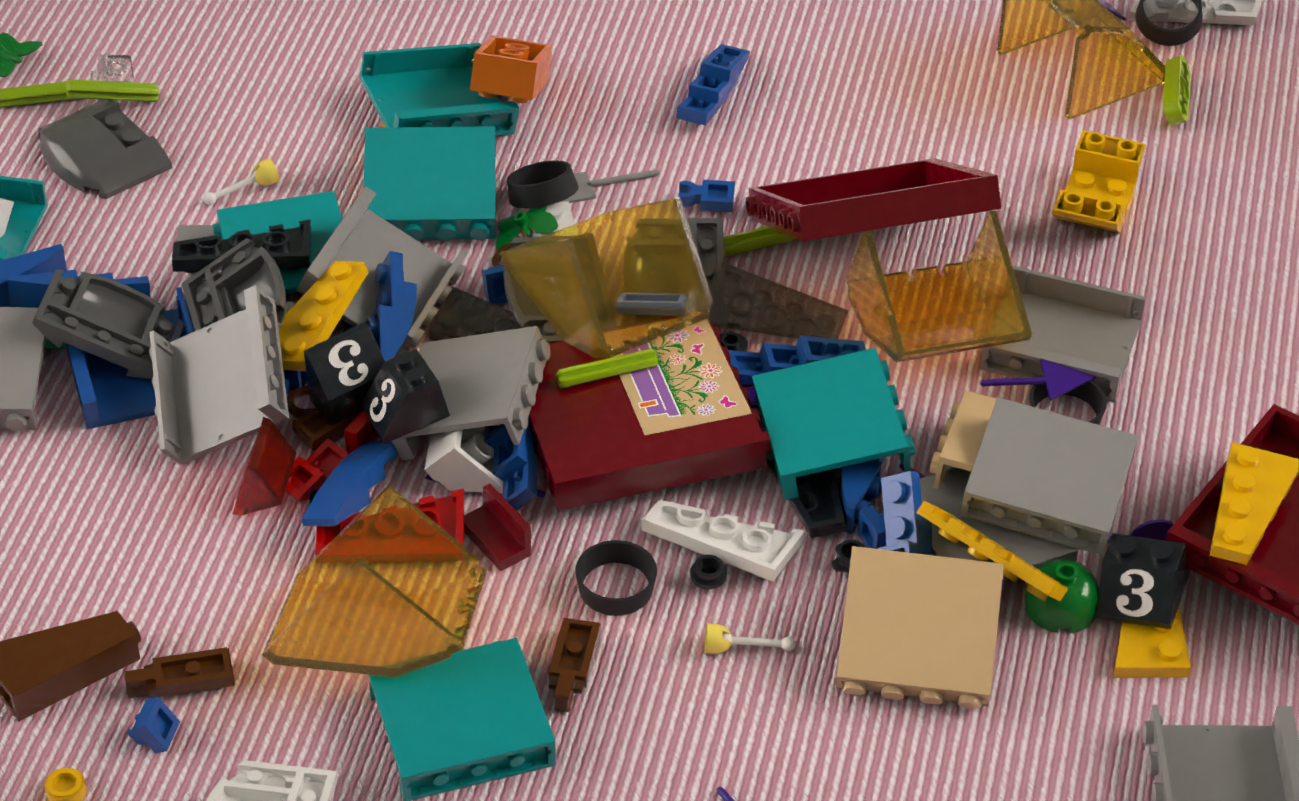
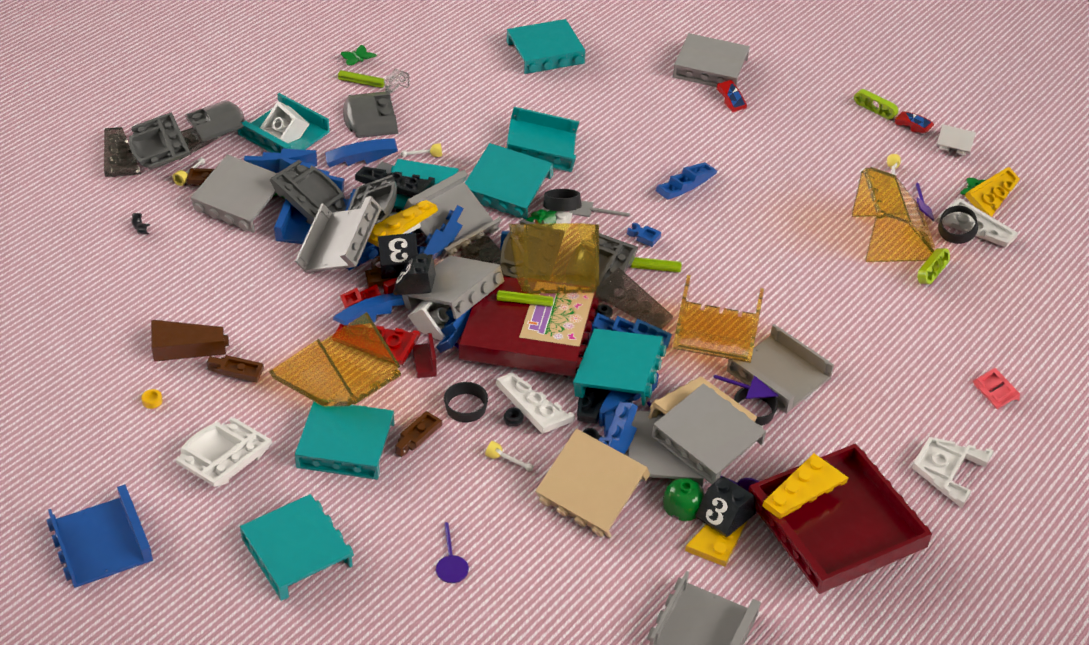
camera: 25 degrees right, 0 degrees up
(112, 90) = (391, 87): lime axle -> none
(131, 222) = (365, 150): none -> blue slope
(154, 725) = (207, 386): blue tile -> none
(266, 471) = (334, 287): clear red slope -> none
(511, 68) = (583, 138): orange brick -> none
(651, 303) = (569, 275): sand blue tile -> none
(873, 199) = (712, 262): dark red panel -> none
(985, 548) = (651, 458): yellow wing -> none
(1100, 182) = (856, 301): yellow slope -> none

